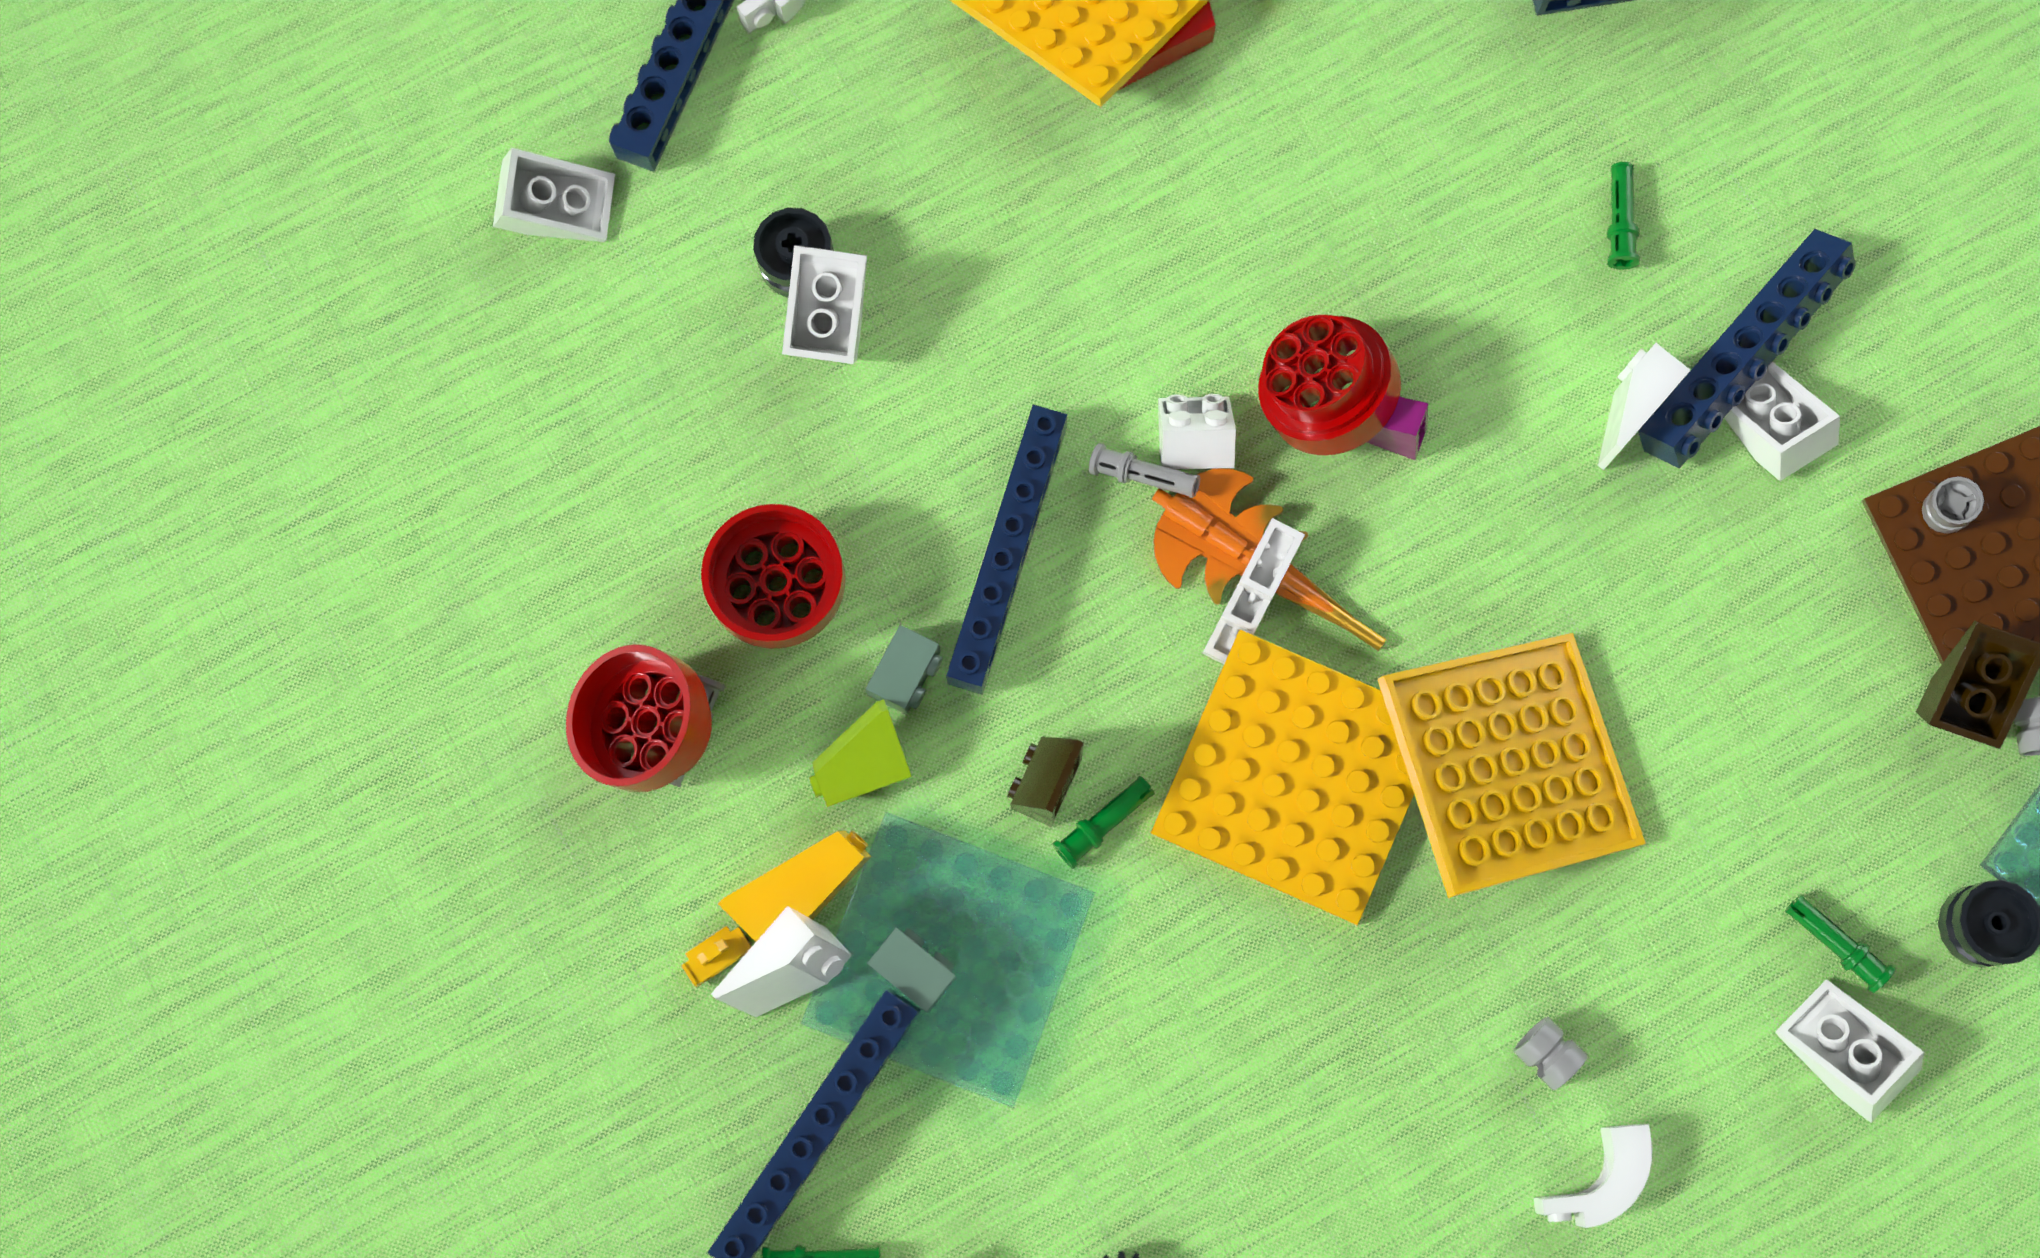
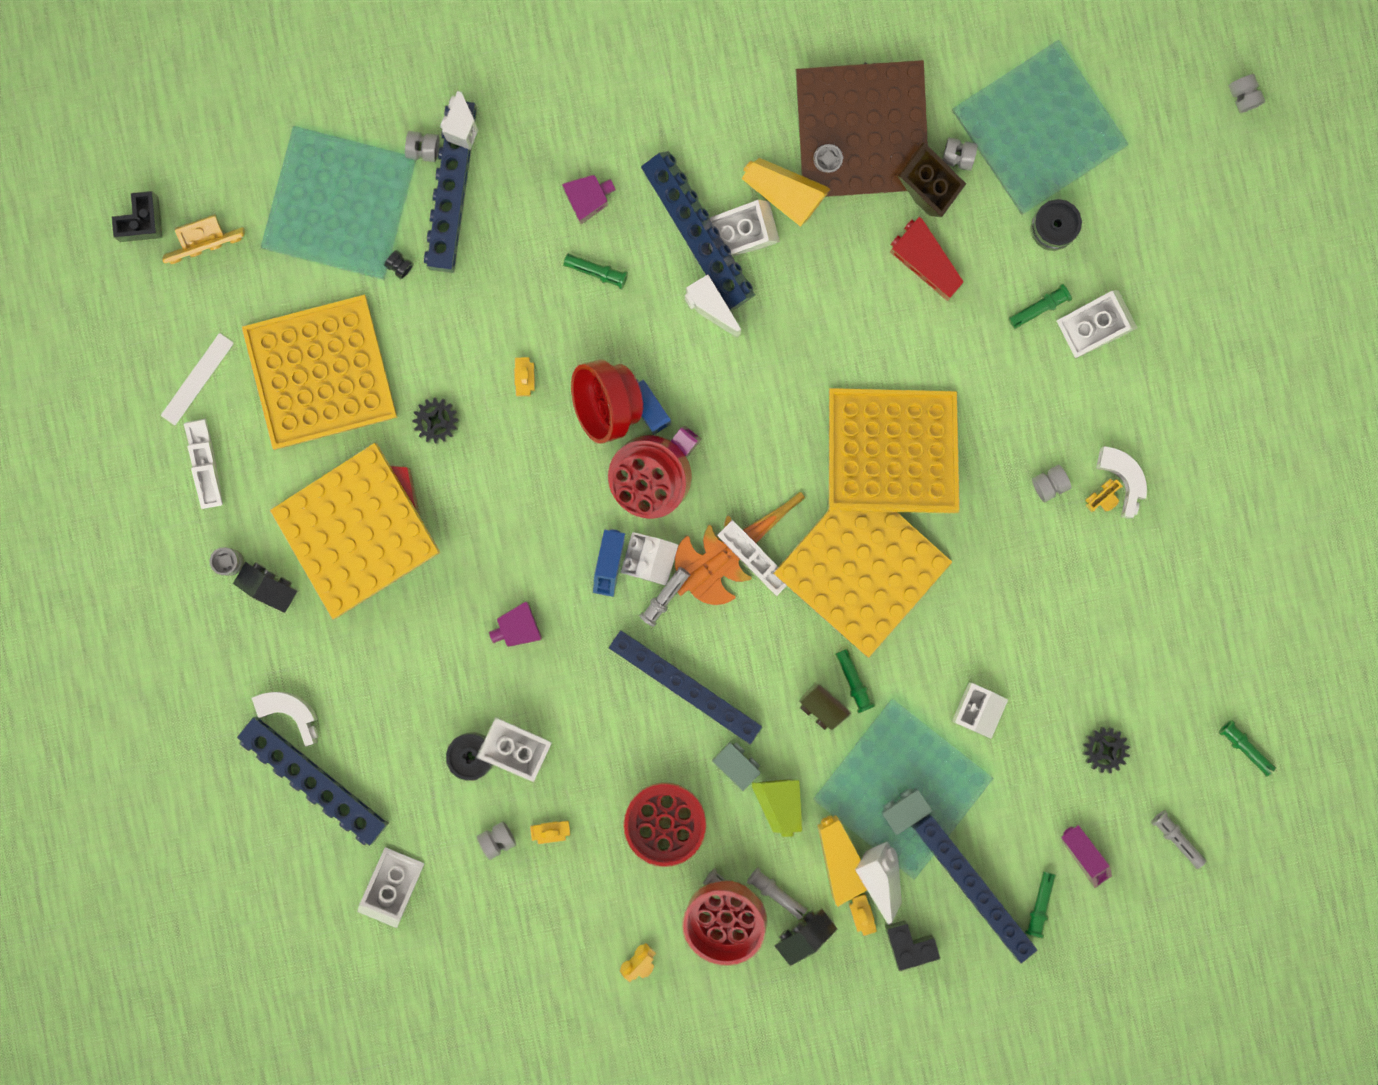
camera: 70 degrees left, 10 degrees up
(535, 614) = (639, 964): none -> yellow piece
(649, 865) = (805, 937): none -> black brick
(667, 327) = (496, 840): none -> light grey wheel
(674, 1047) = (910, 952): none -> black brick
(710, 411) = (550, 832): none -> yellow piece
(717, 783) = (768, 887): none -> light grey pin
(1021, 264) = (516, 627): none -> magenta torso
(1122, 1049) = (980, 710): none -> white slope
(1167, 369) = (608, 562): none -> blue slope
(1317, 48) = (439, 411): none -> black gear
(1416, 159) = (524, 376): none -> yellow piece
(1430, 278) = (605, 399): none -> red wheel
(1437, 356) = (652, 412): none -> blue slope
(1558, 1157) = (1104, 498): none -> yellow piece
(1733, 168) = (587, 196): none -> magenta torso
(1845, 725) = (926, 259): none -> red slope
(1868, 464) = (785, 189): none -> yellow slope

